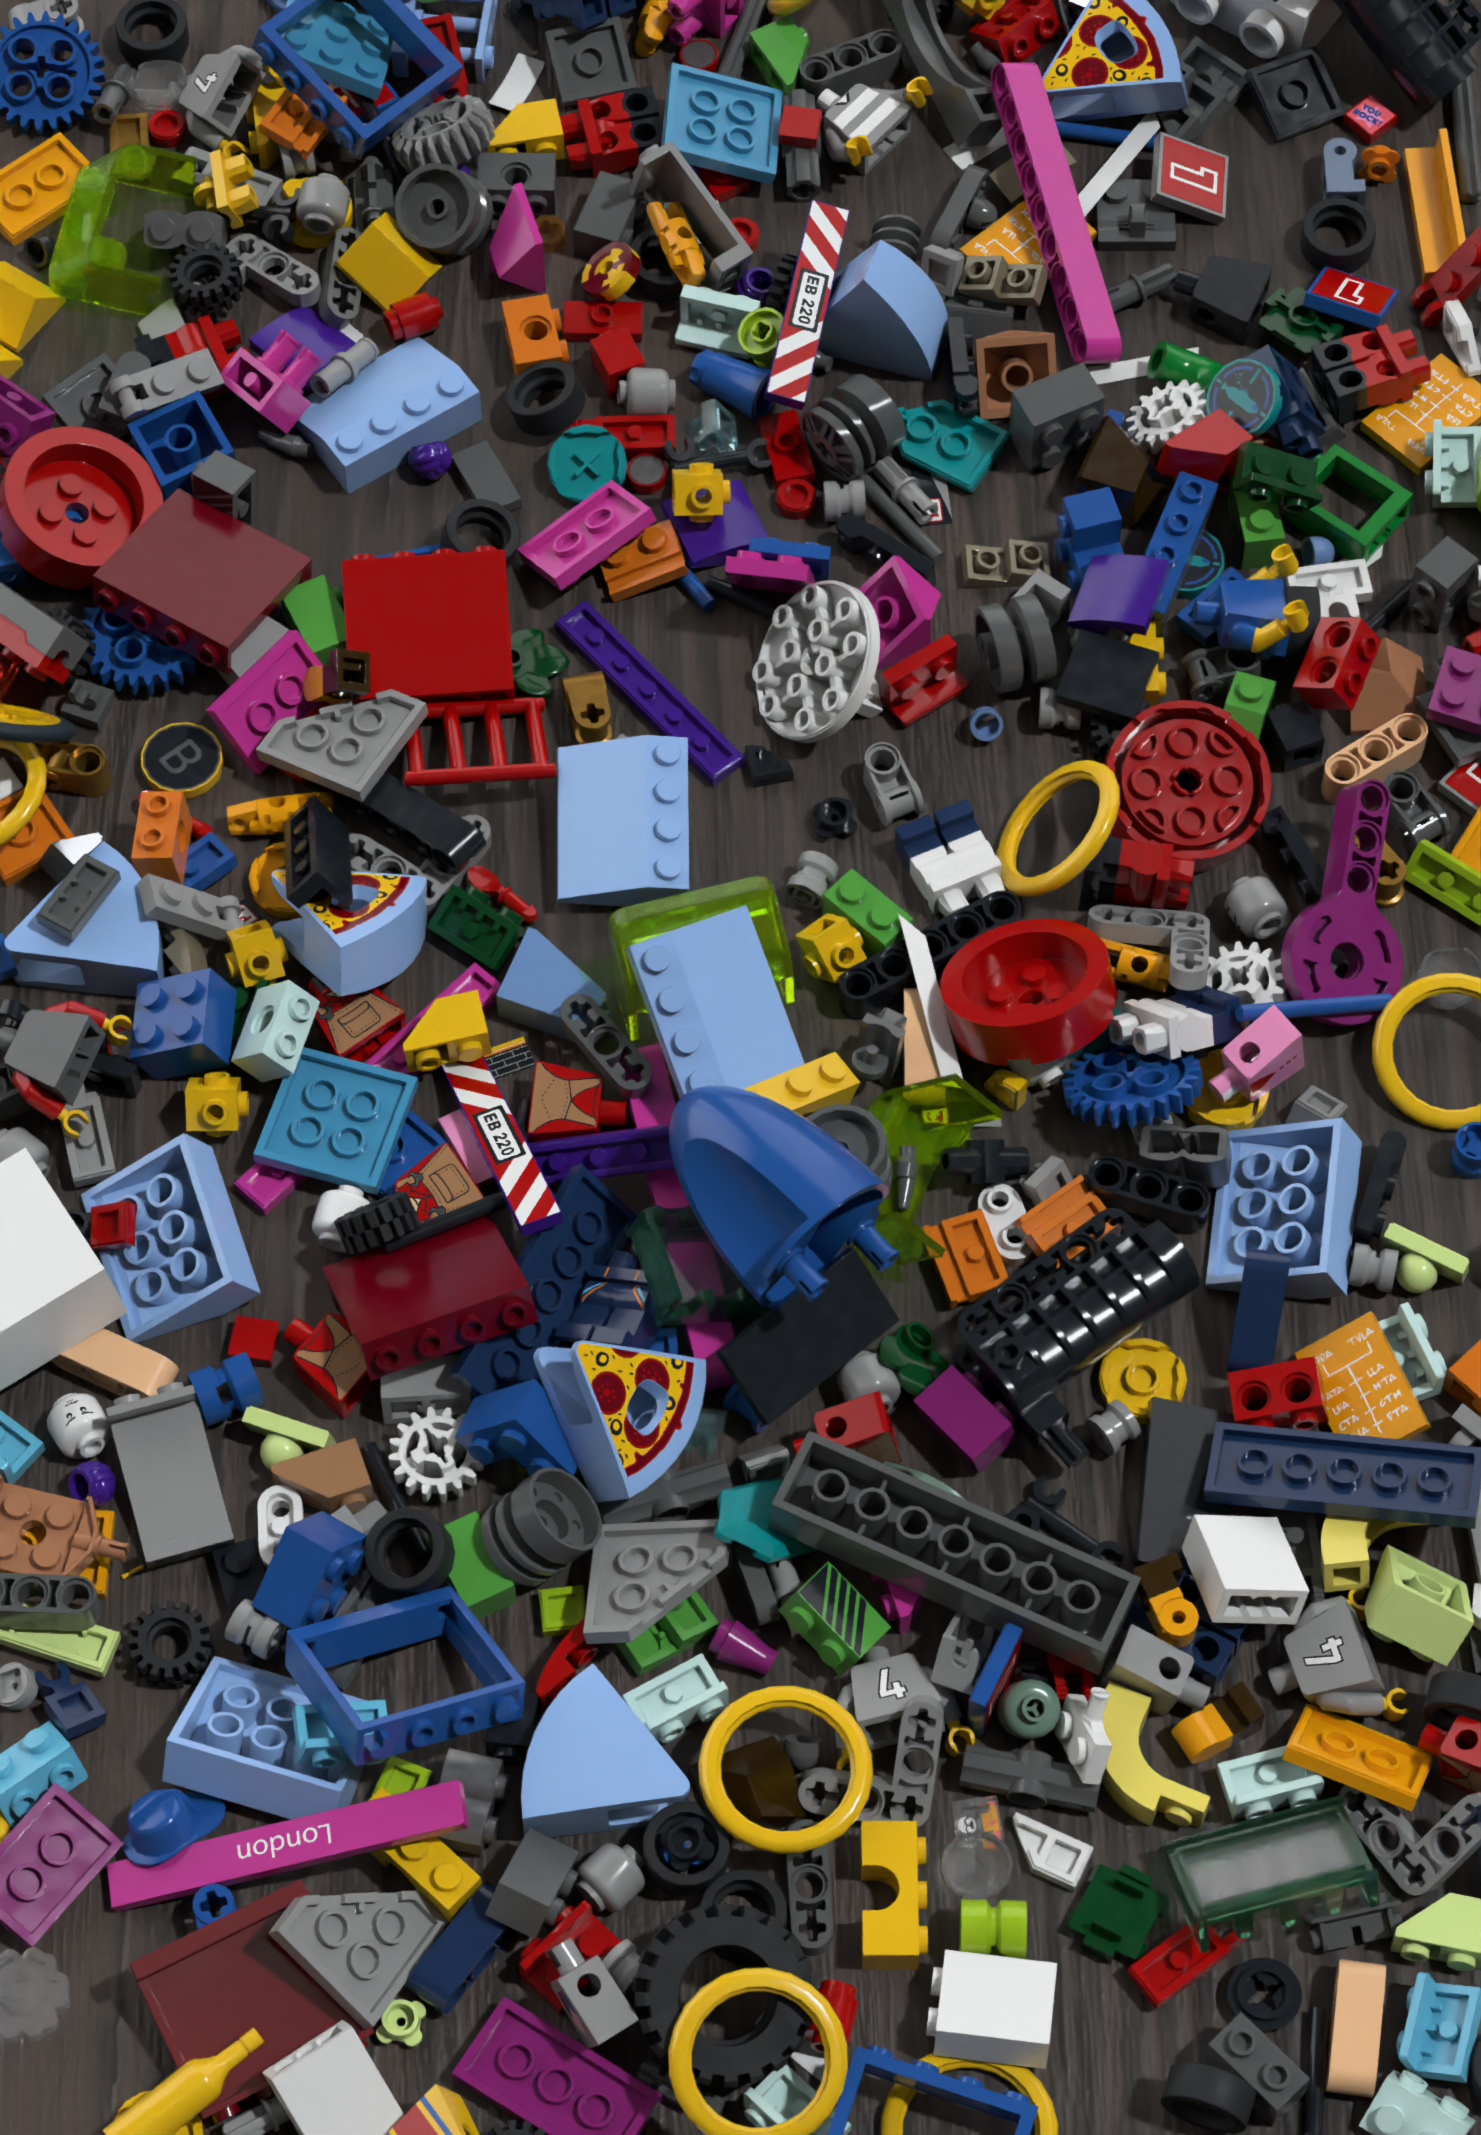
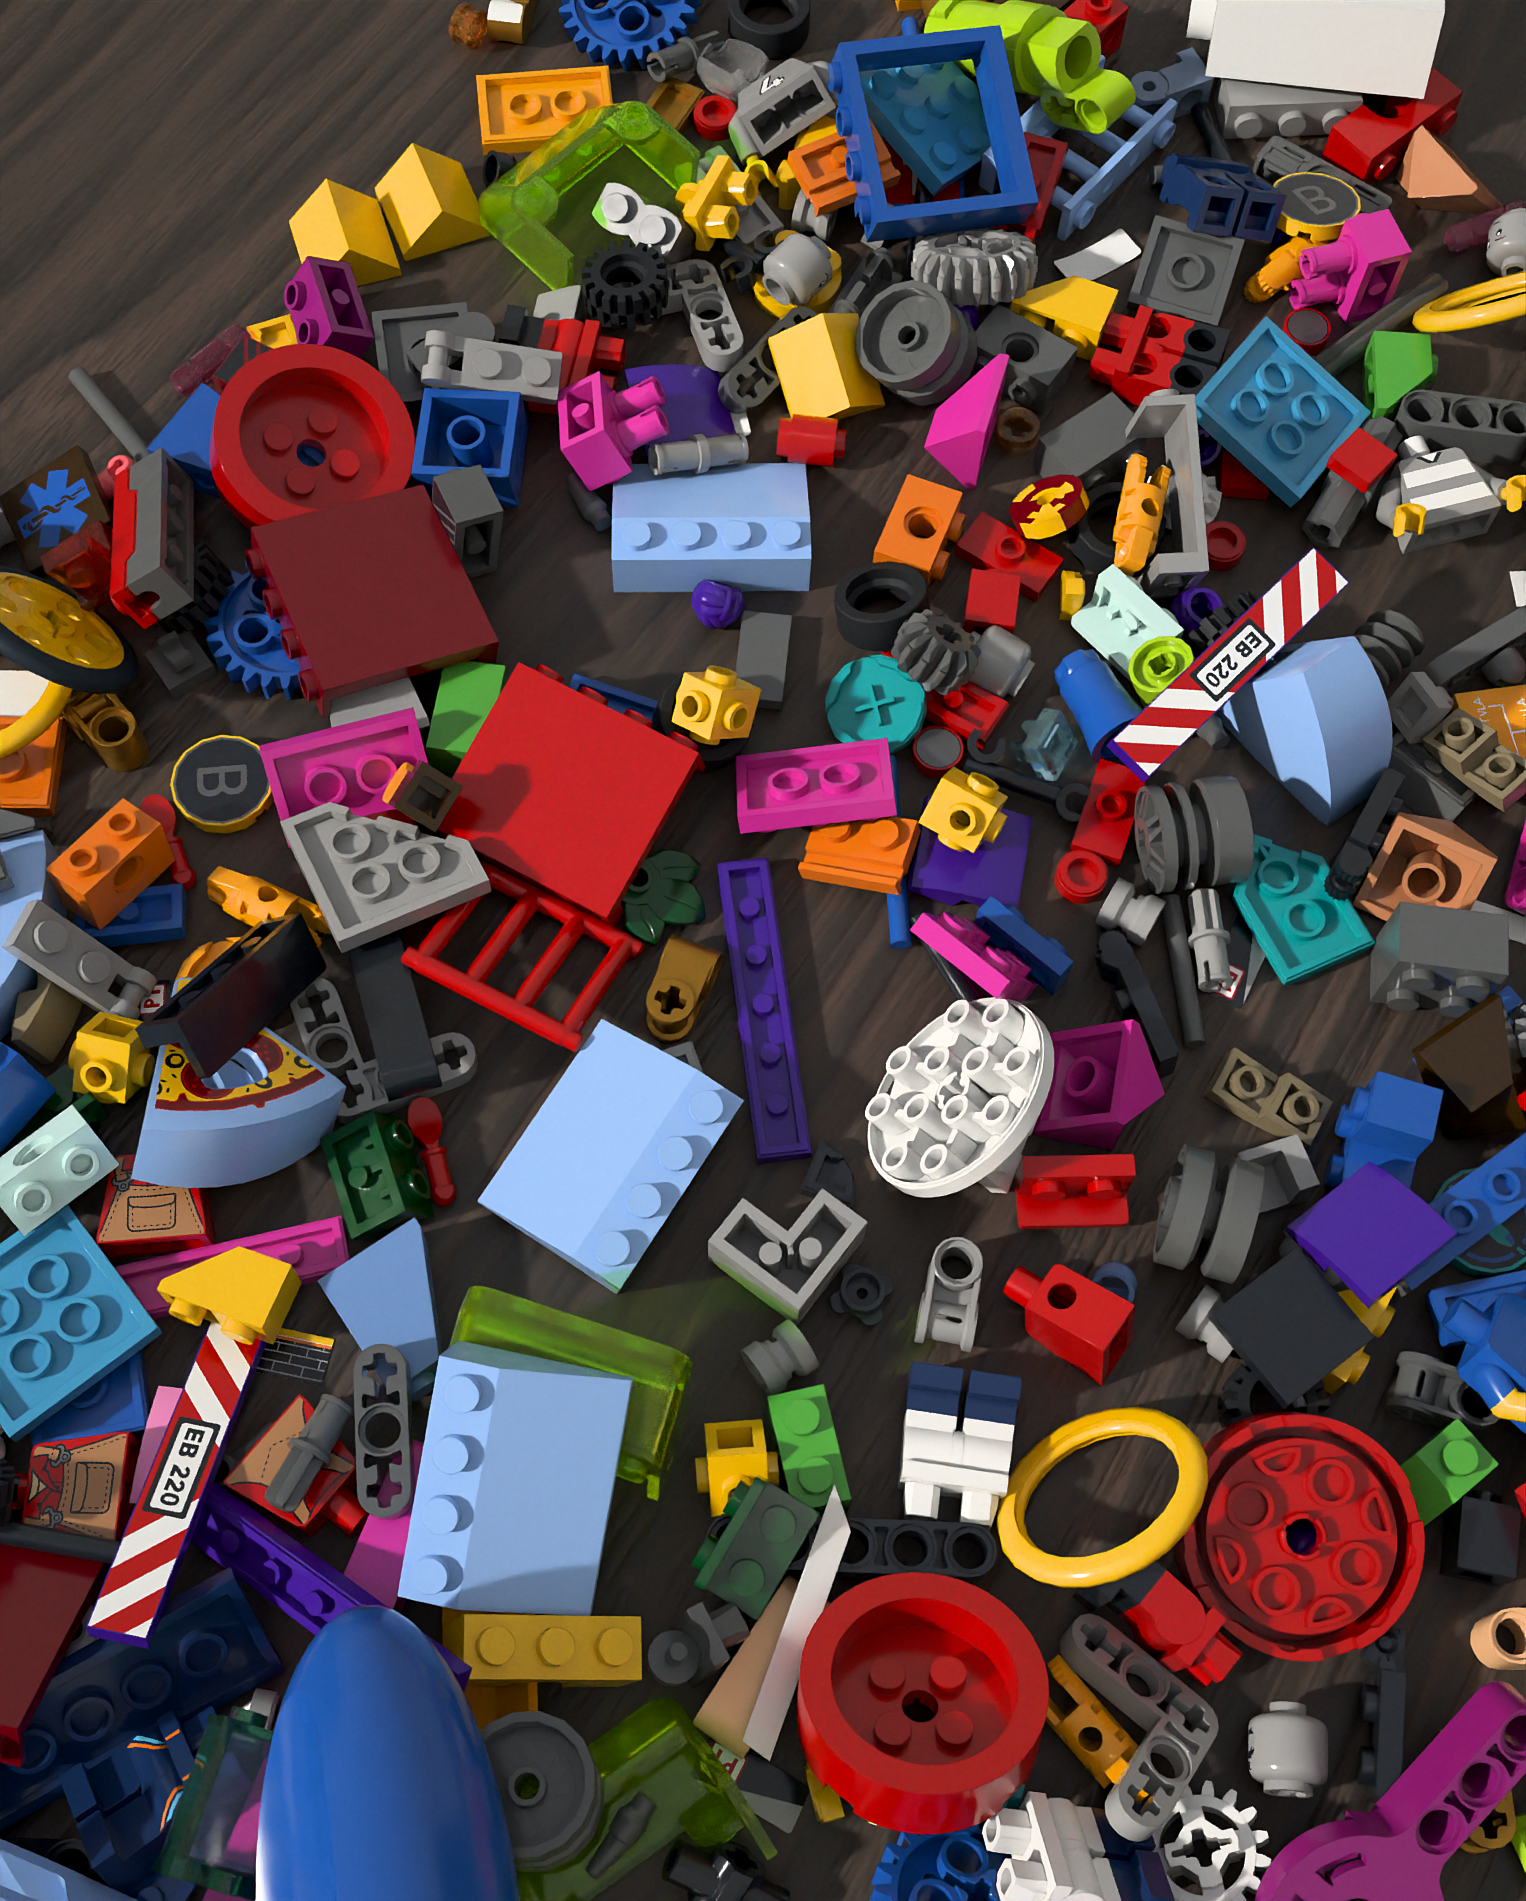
camera: 30 degrees right, 5 degrees up
(489, 516) = (715, 705): none -> yellow brick
(571, 1079) = (308, 1453): none -> dark grey axle
(608, 404) = (935, 652): none -> dark grey gear
(663, 322) = (1071, 594): none -> yellow tile
(773, 823) = (787, 1266): none -> light grey brick
(875, 971) = (755, 1546): none -> dark green bracket
(975, 751) = (1074, 1318): none -> red torso

